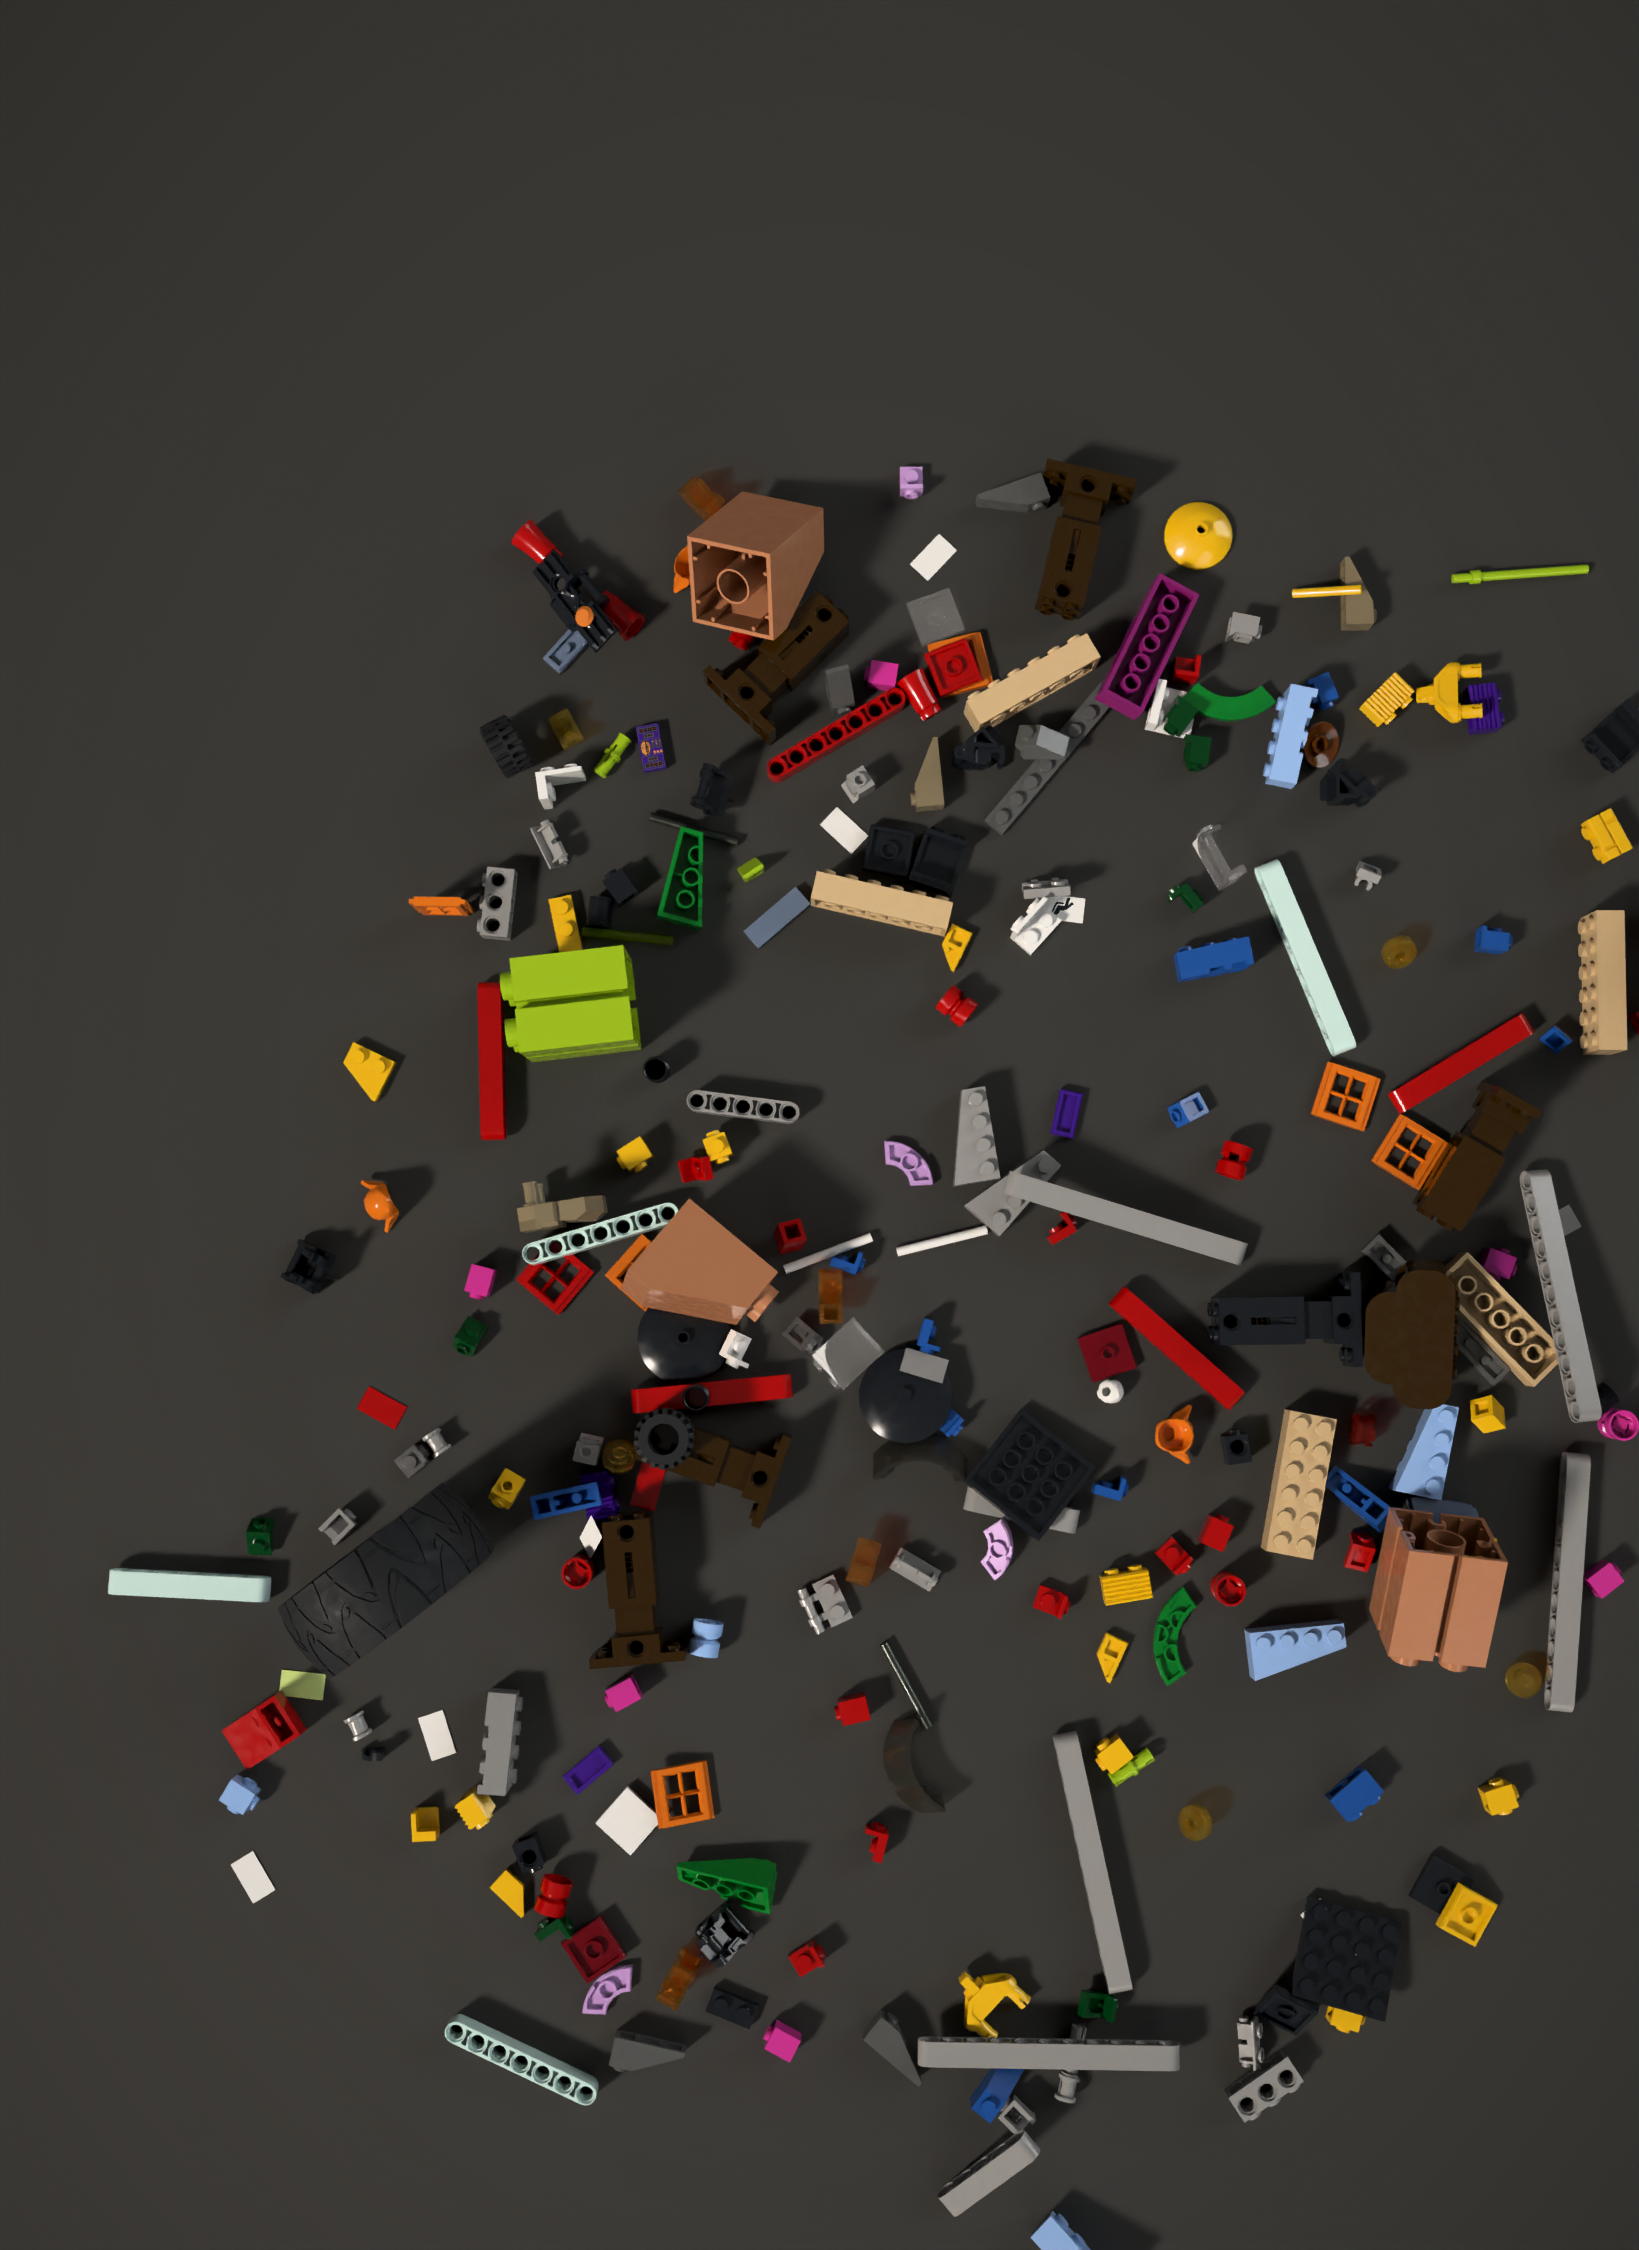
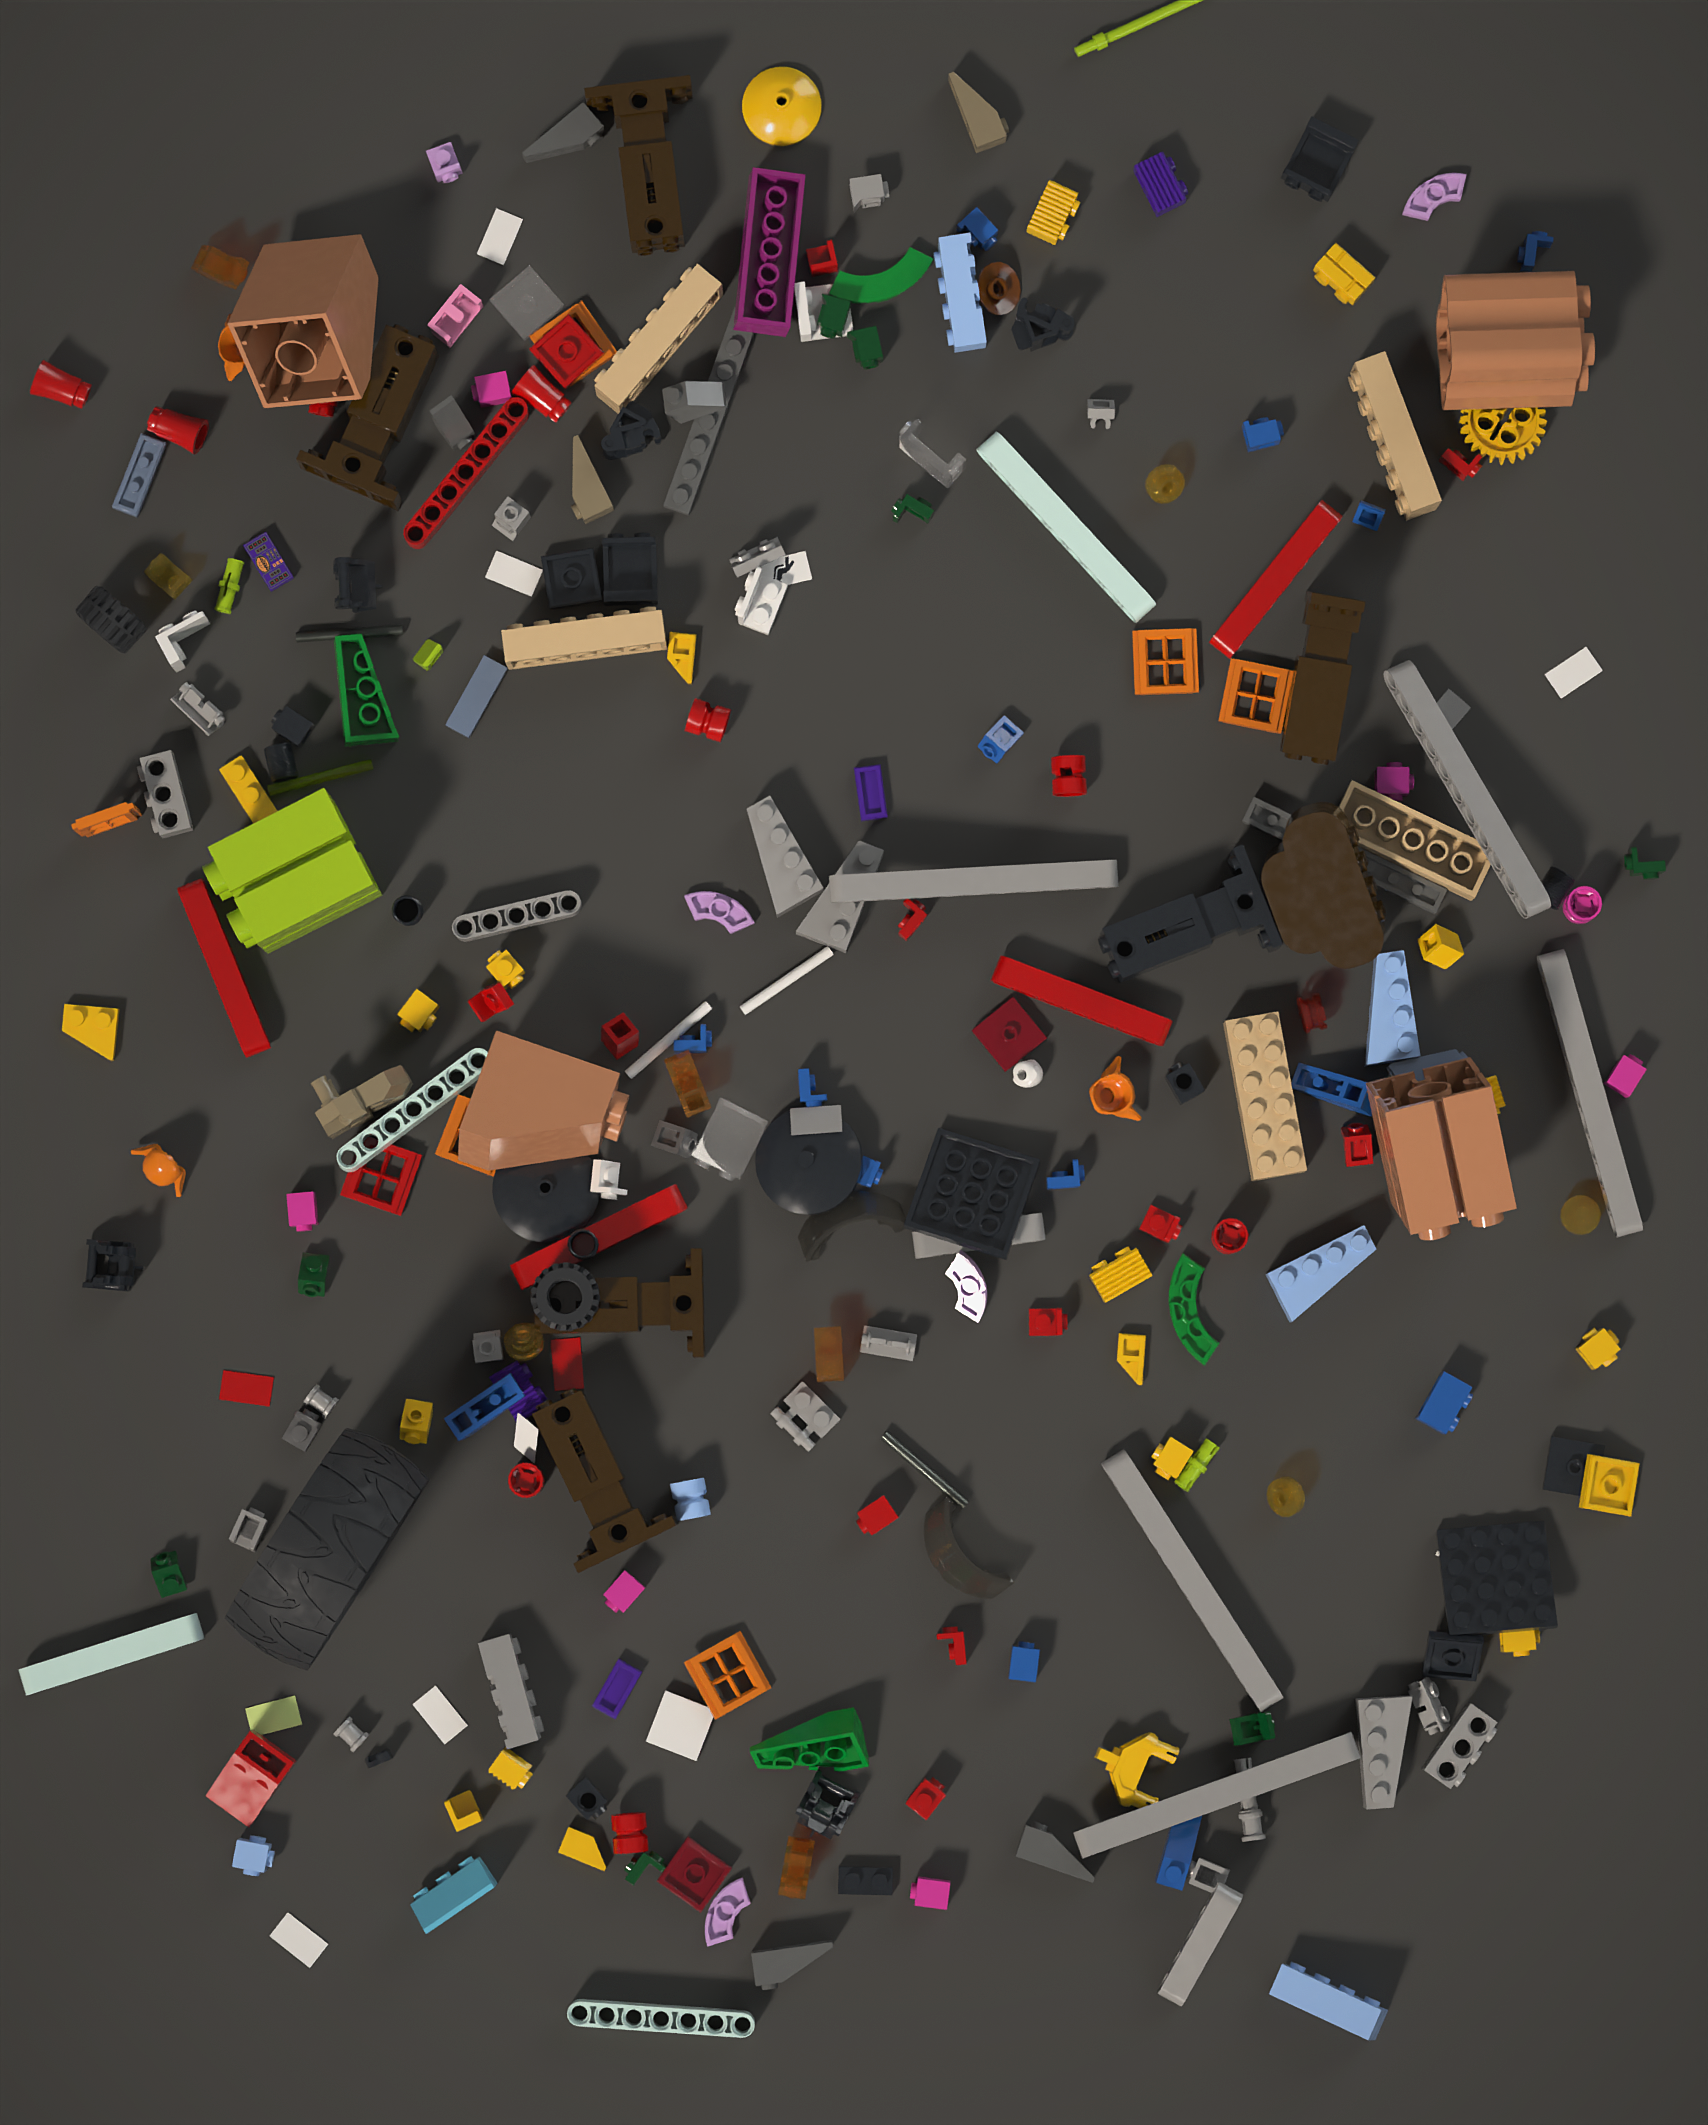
camera: 25 degrees left, 0 degrees up
(390, 1892) = (452, 1893): none -> medium azure slope
(569, 605) = (122, 440): black piece -> none
(874, 605) = (455, 315): none -> bright pink window
(929, 1877) = (1024, 1662): none -> blue brick
(1202, 2055) = (1381, 1740): none -> light grey wedge
(1213, 959) = (966, 566): blue wedge -> none
(1216, 1532) = (1195, 1181): red brick -> none
(1327, 591) = (943, 118): yellow piece -> none
(1444, 692) = (1112, 180): yellow connector -> none

